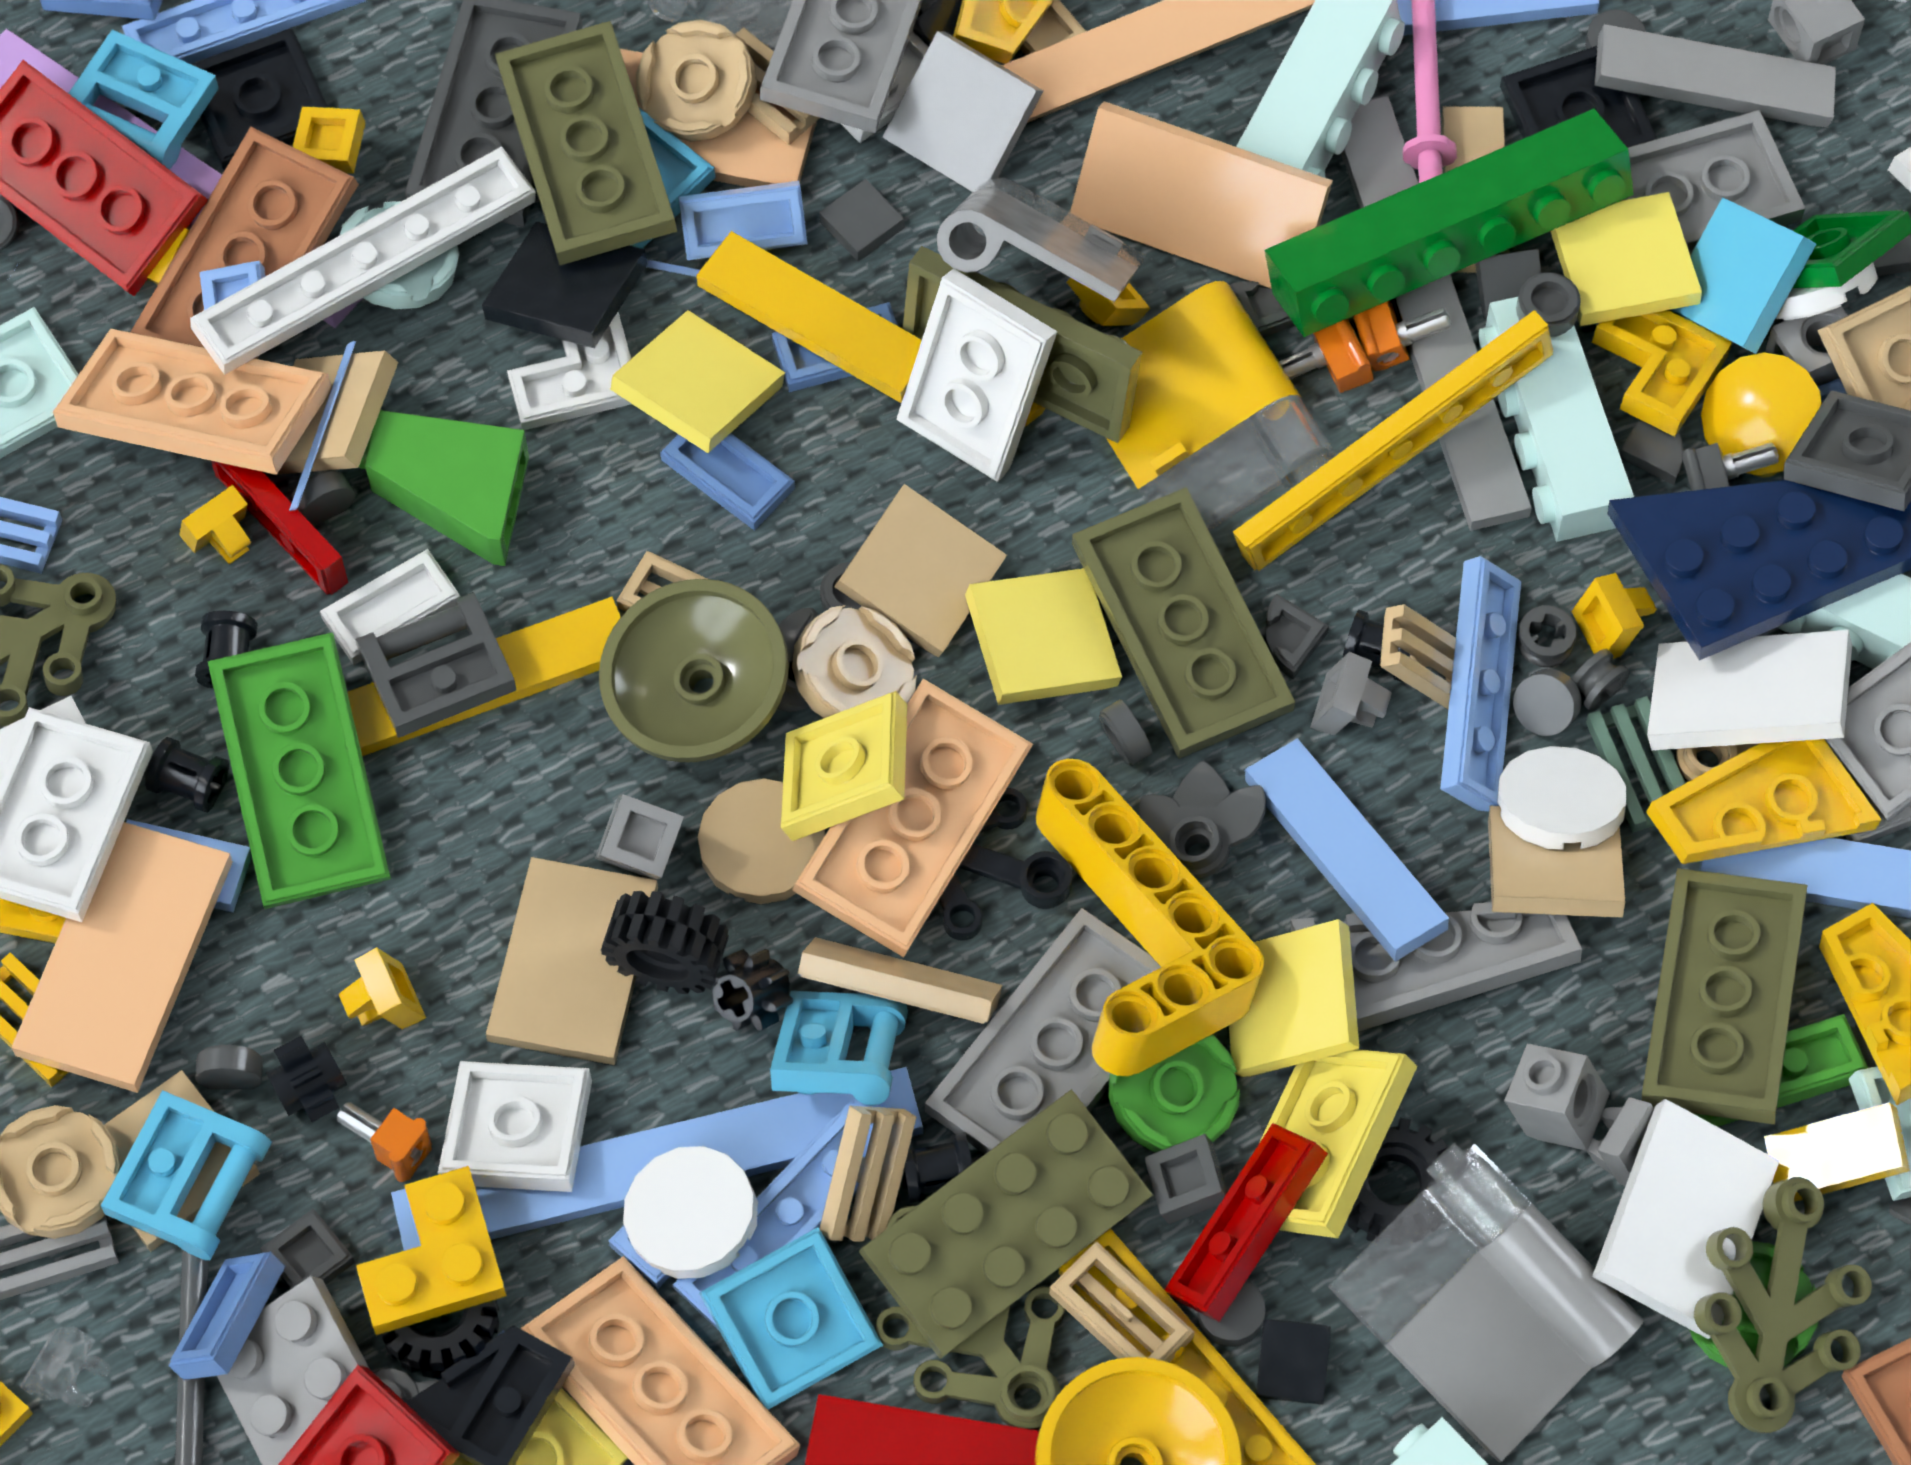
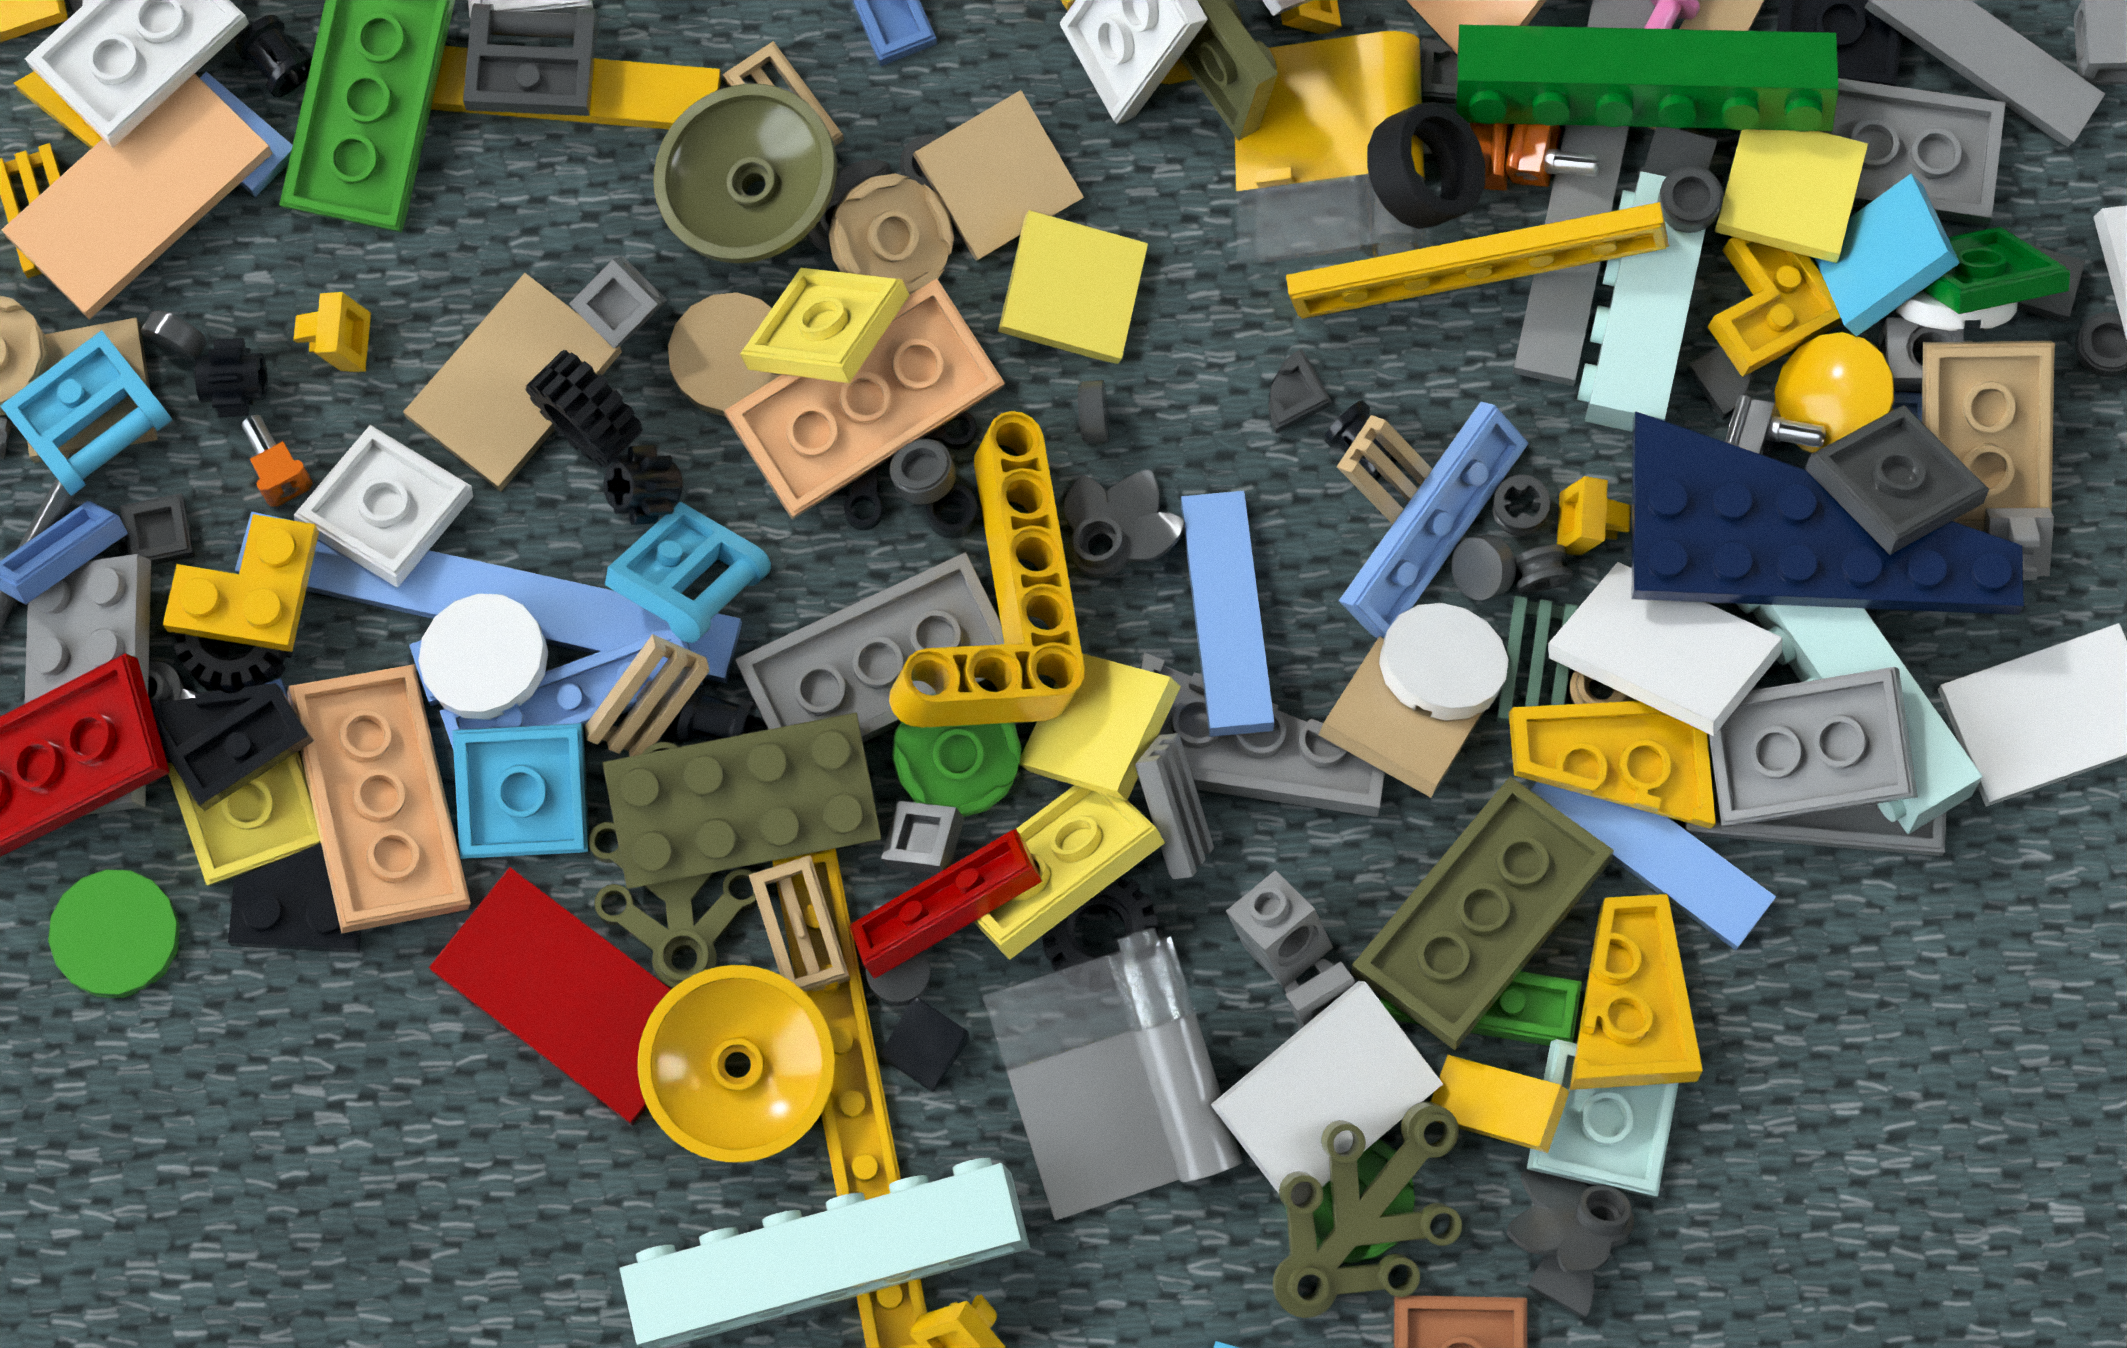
camera: 30 degrees right, 10 degrees up
(899, 980) = (775, 539): tan tile -> none
(1003, 855) = (923, 471): none -> dark grey tile
(1183, 622) = (1200, 335): olive plate -> none
(1304, 380) = (1395, 174): none -> black tyre
(1349, 696) = (1310, 476): light grey tile -> none
(1403, 1032) = (1174, 805): none -> light grey tile

